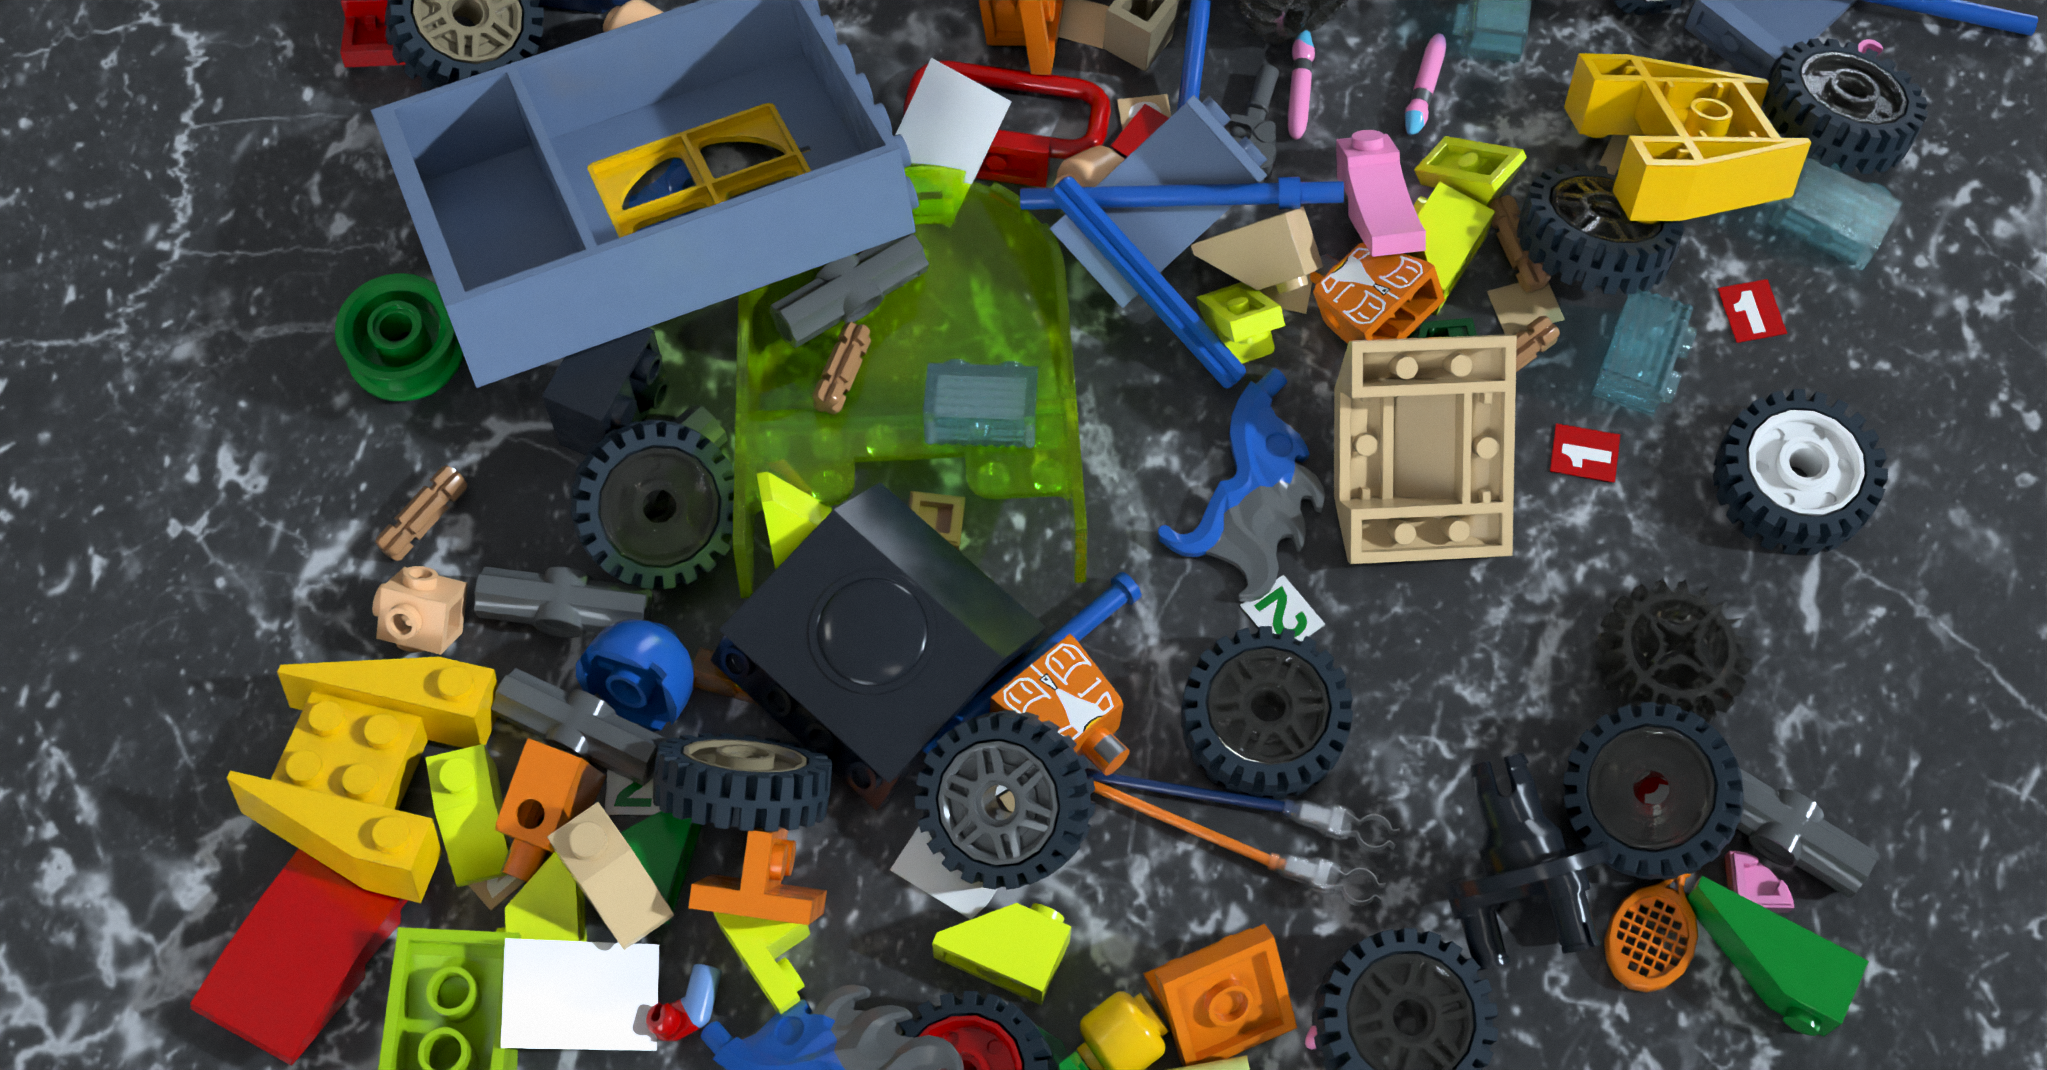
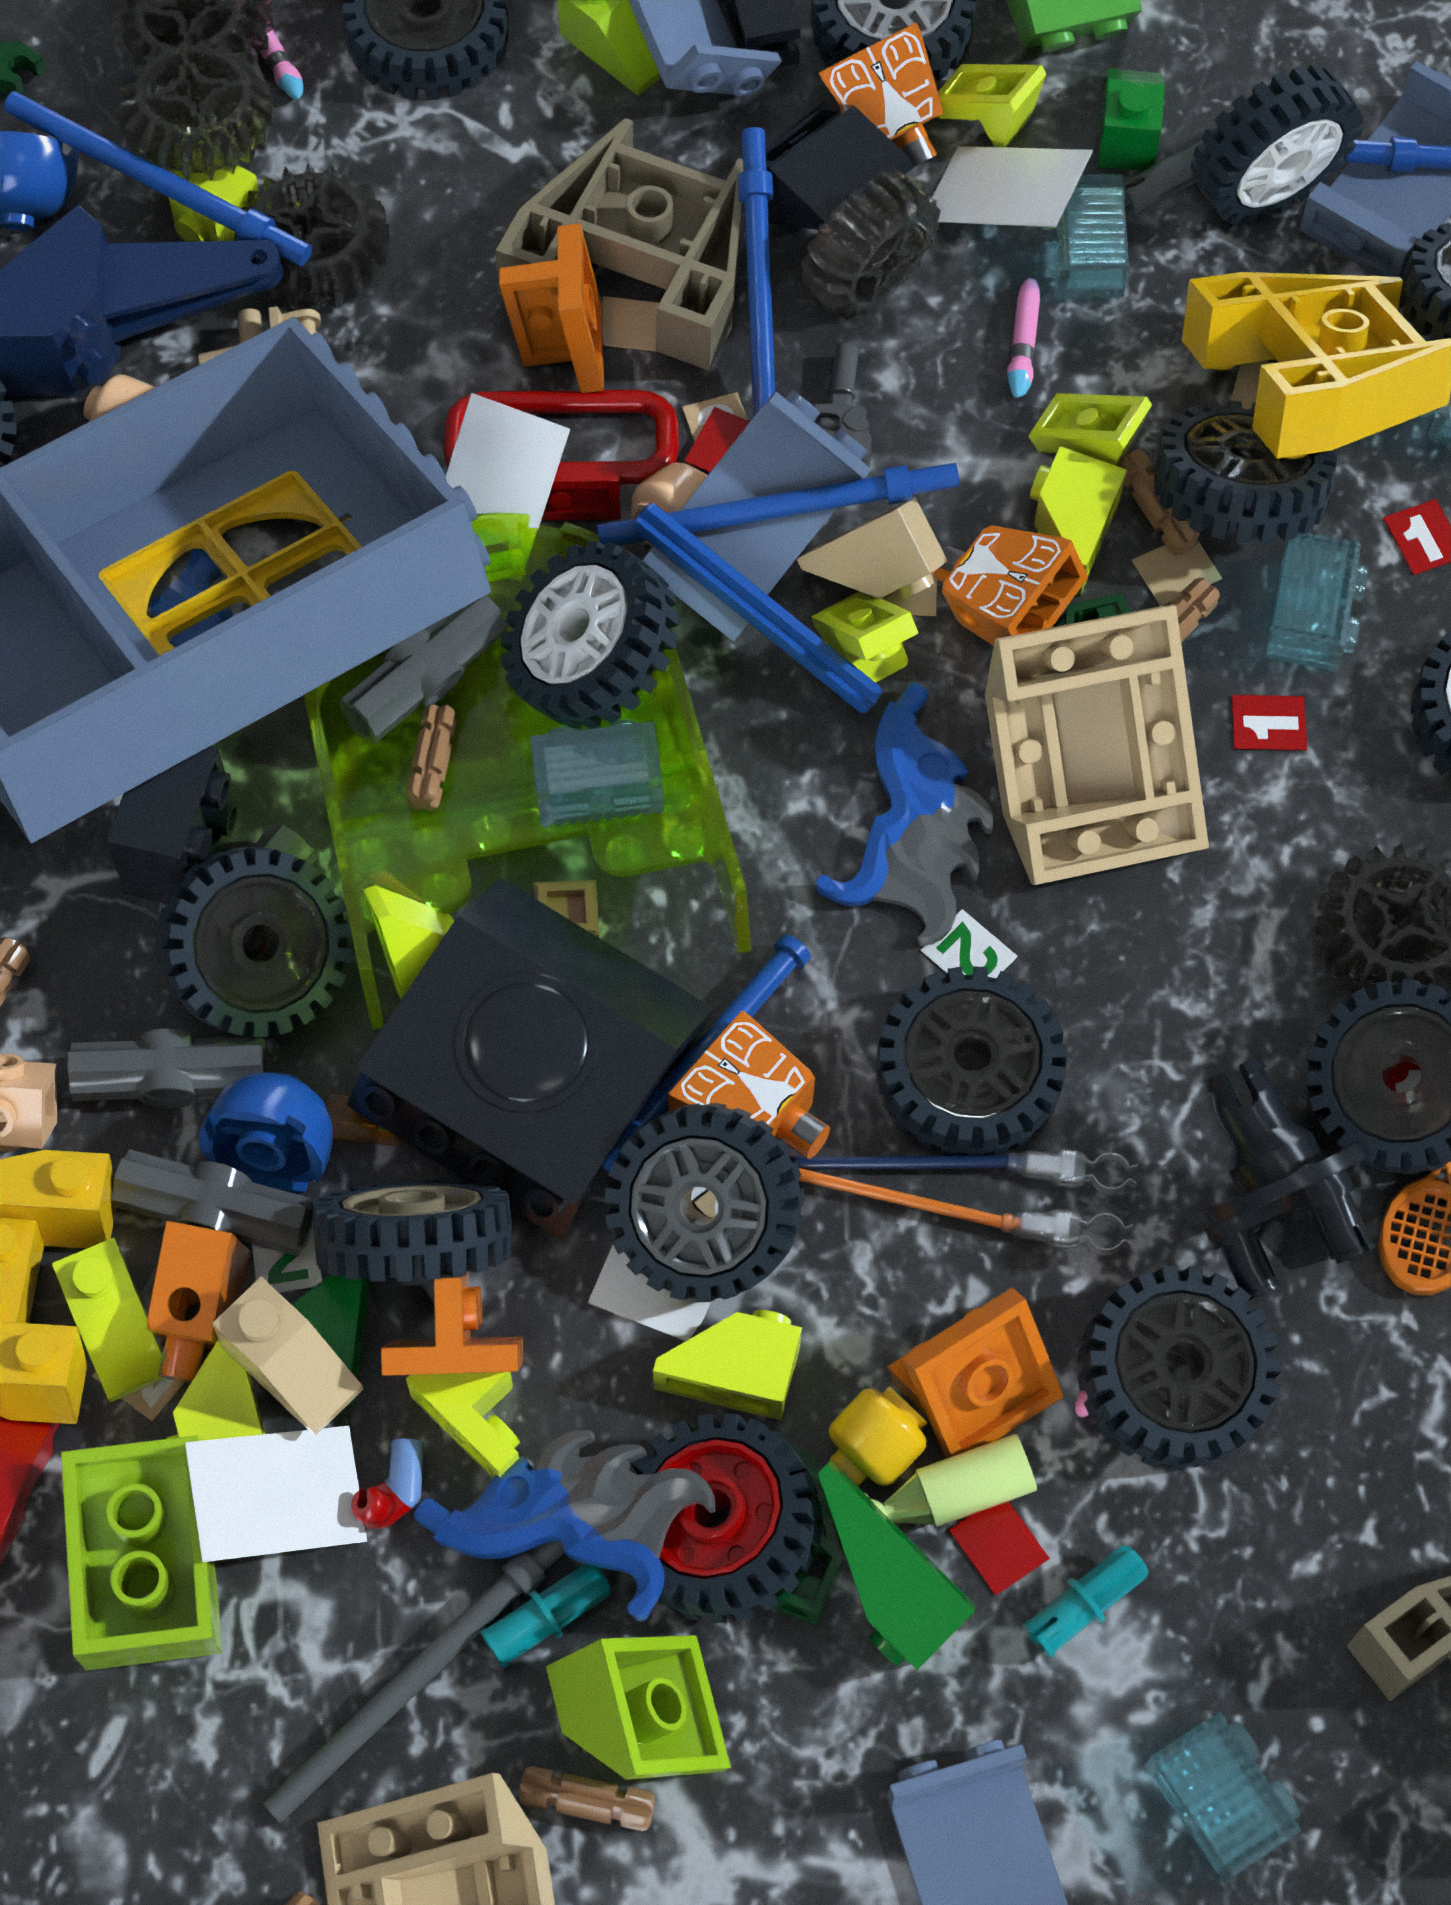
camera: 10 degrees left, 0 degrees up
(996, 283) = (589, 635): none -> black wheel
(1303, 55) = (885, 359): bright pink piece -> none
(1378, 194) = (994, 470): bright pink slope -> none

